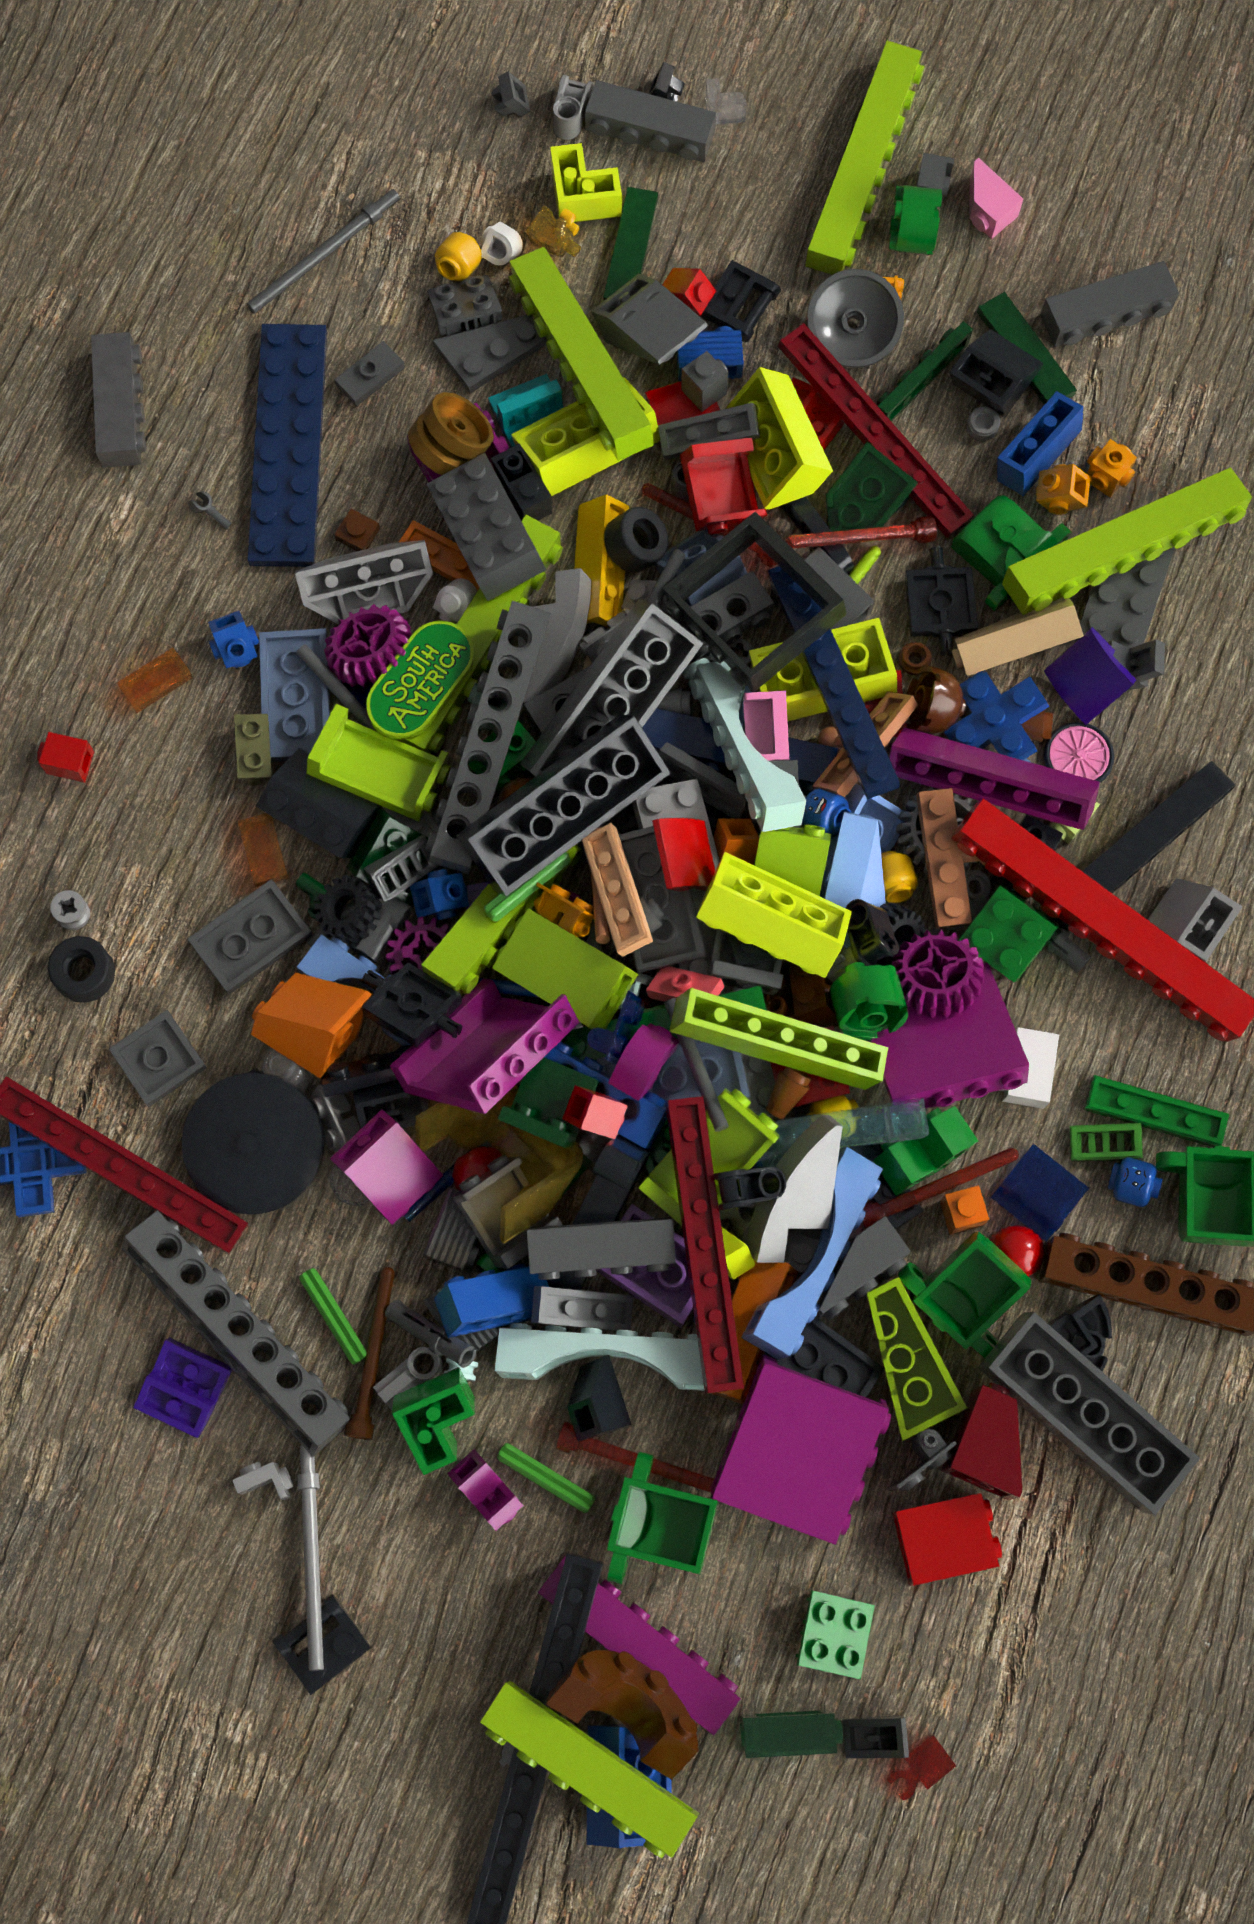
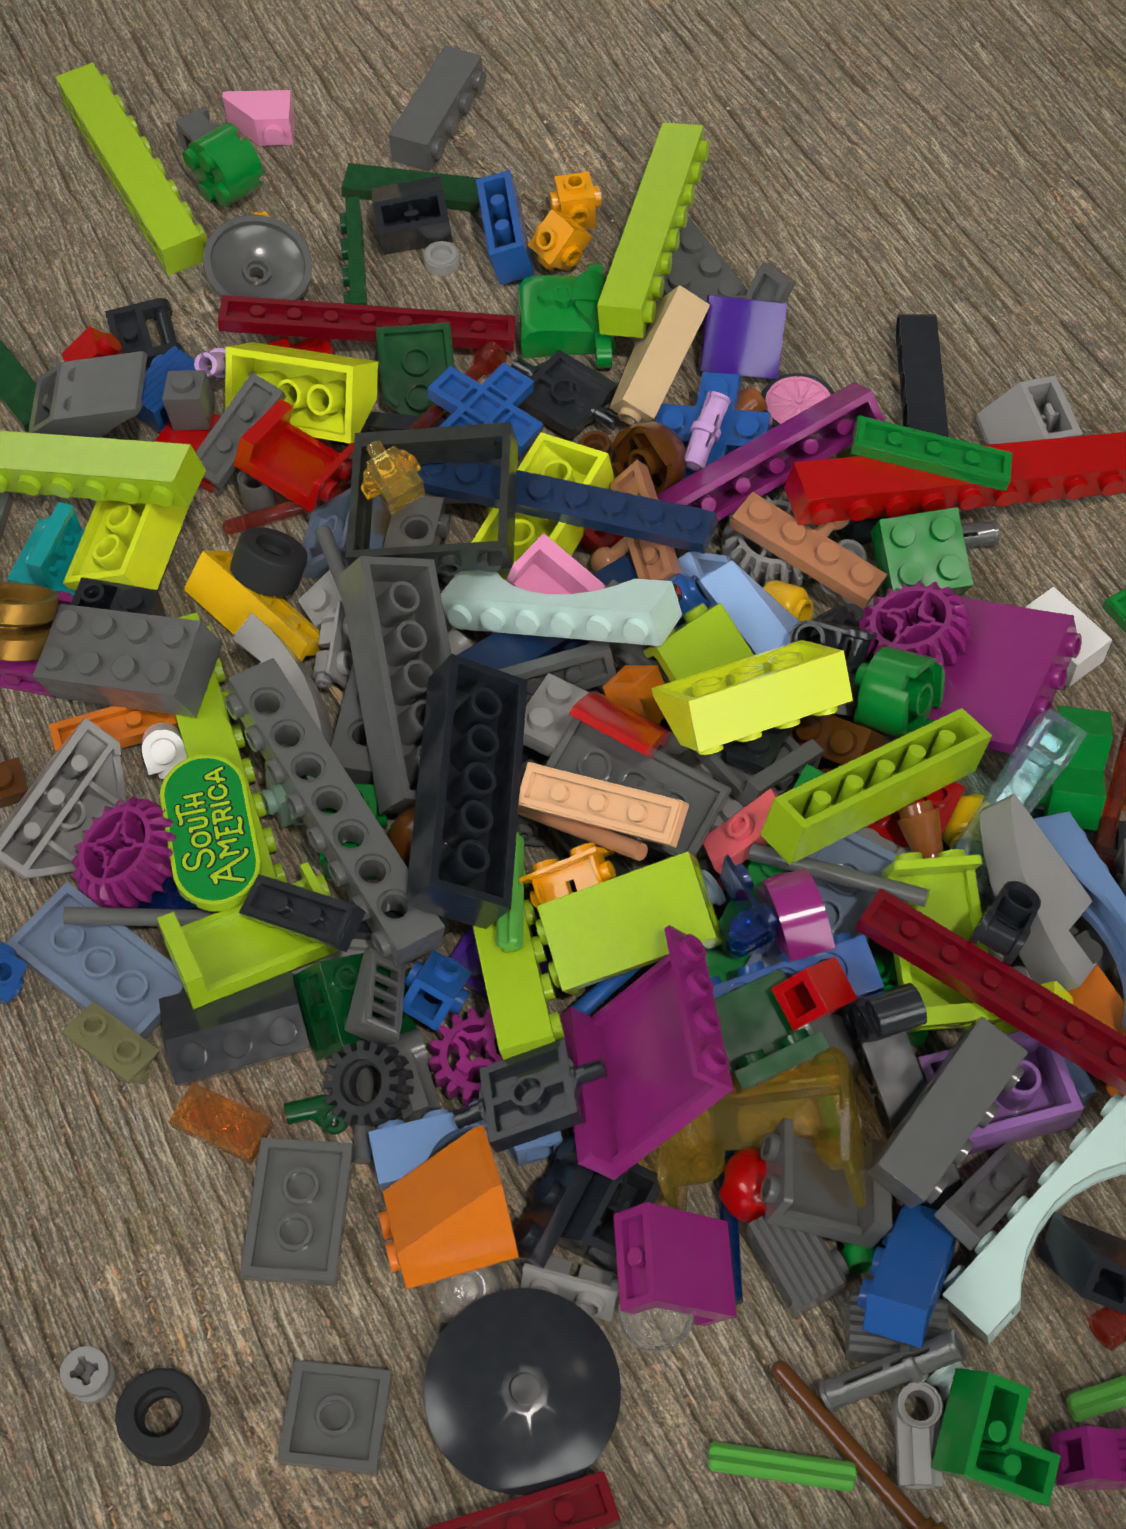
camera: 45 degrees left, 15 degrees down
(410, 780) = (302, 912): none -> black tile
(736, 566) = (392, 477): none -> clear yellow piece
(746, 368) = (216, 359): none -> lavender pin
(864, 568) = (488, 402): none -> blue plate
(980, 718) = (706, 430): none -> lavender pin
(1080, 878) = (932, 453): none -> green tile

